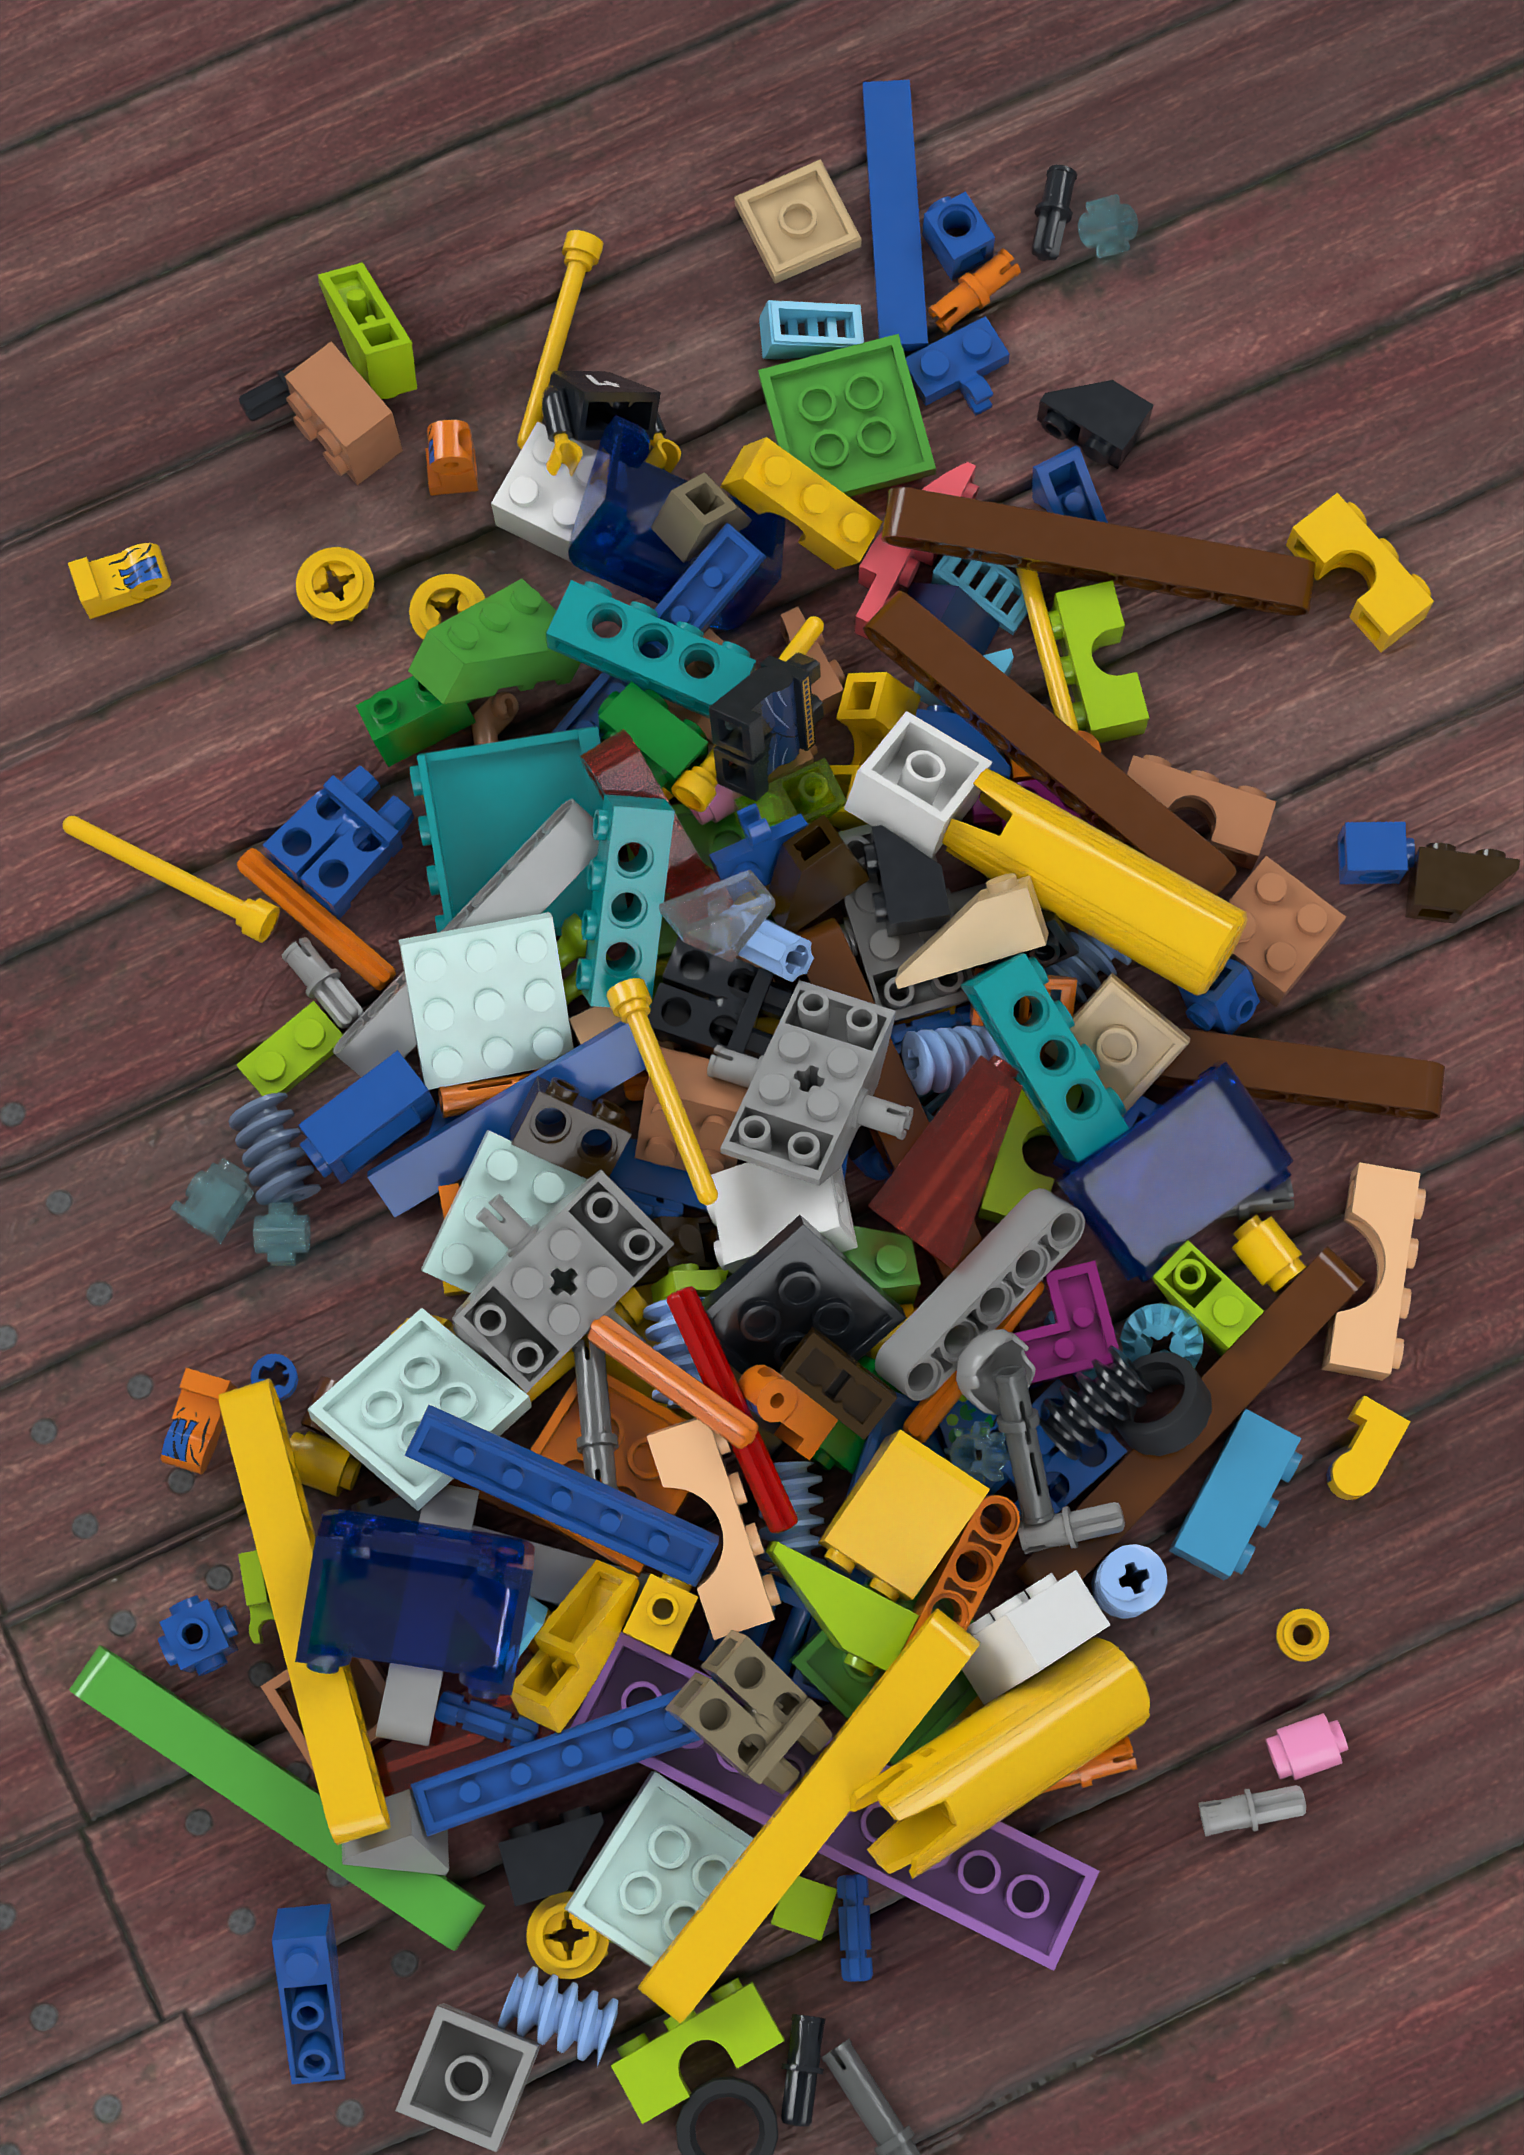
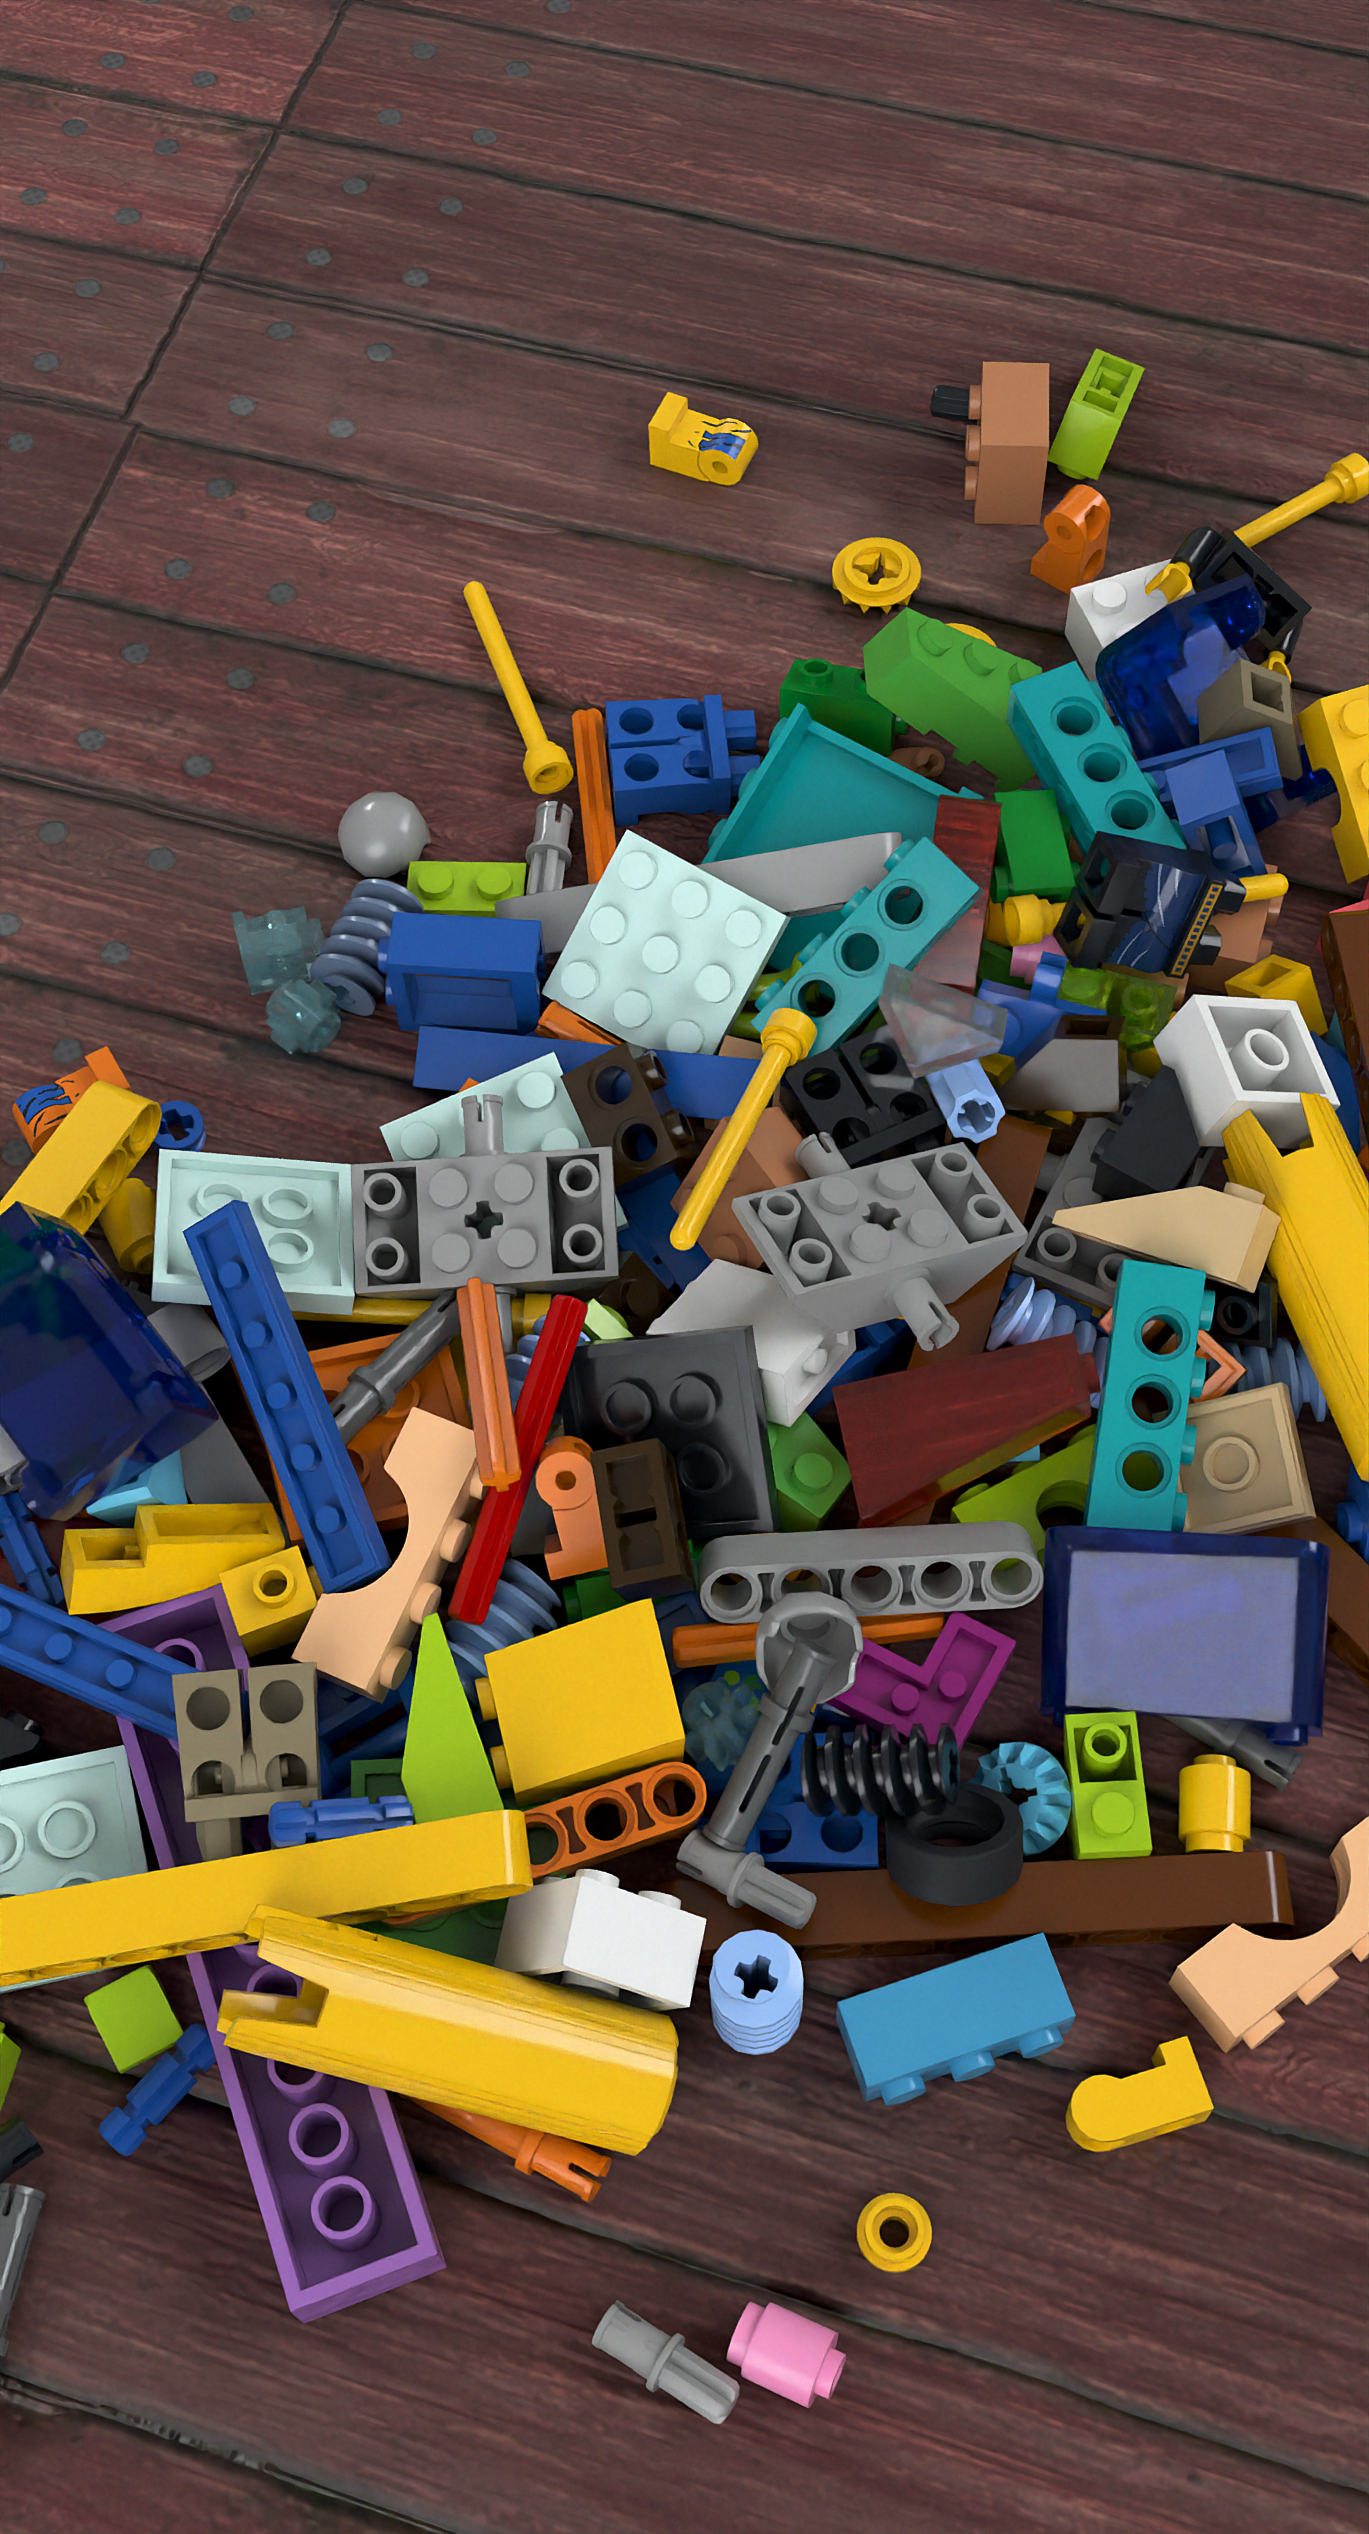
camera: 45 degrees right, 15 degrees down
(198, 1061) = (382, 834): none -> light grey hair
(747, 618) = (1215, 814): none -> blue slope
(841, 1704) = (335, 1818): none -> blue axle

